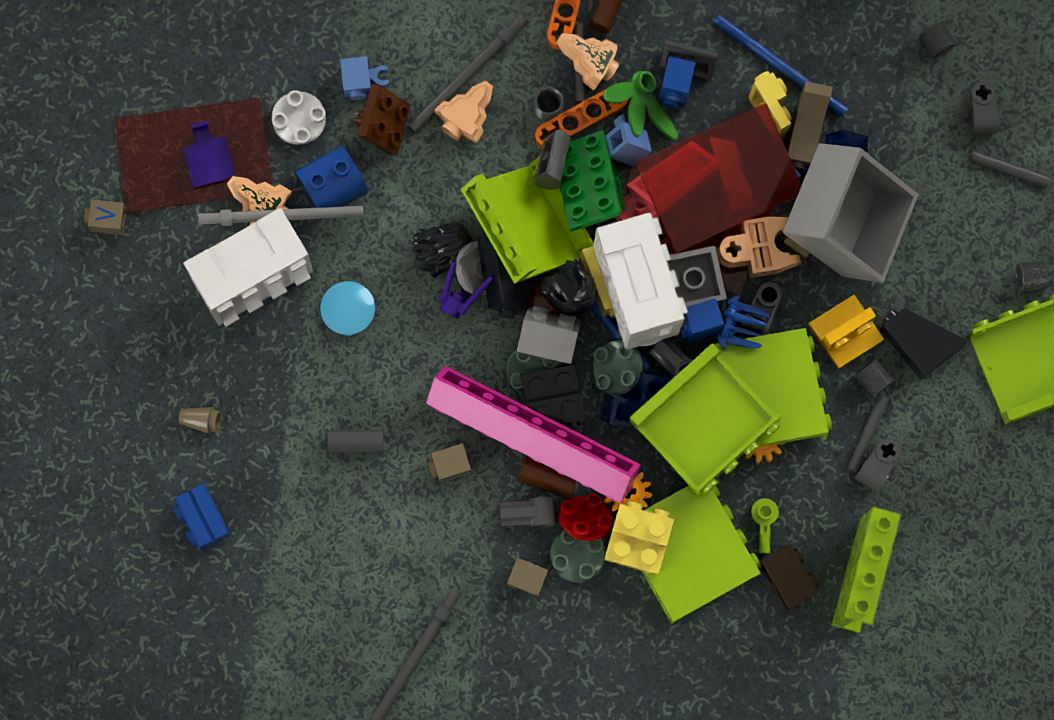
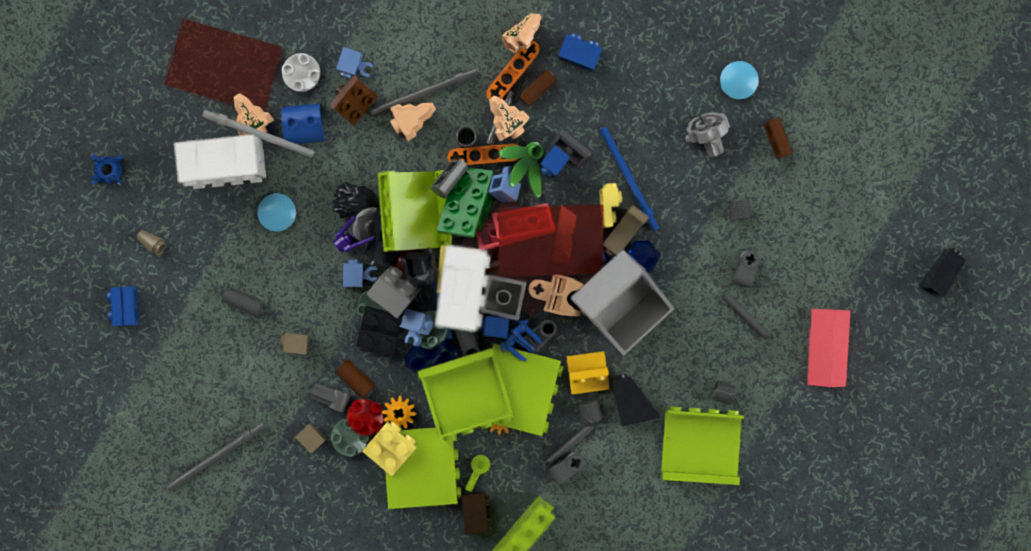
camera: 35 degrees right, 10 degrees up
(101, 365) = (100, 176): none -> blue piece
(106, 217) = (147, 83): dark tan brick -> none
(208, 158) = (230, 73): dark purple piece -> none
(487, 340) = (354, 274): none -> medium blue brick
(533, 434) = (353, 350): brick -> none
(595, 364) = (416, 323): none -> medium blue brick

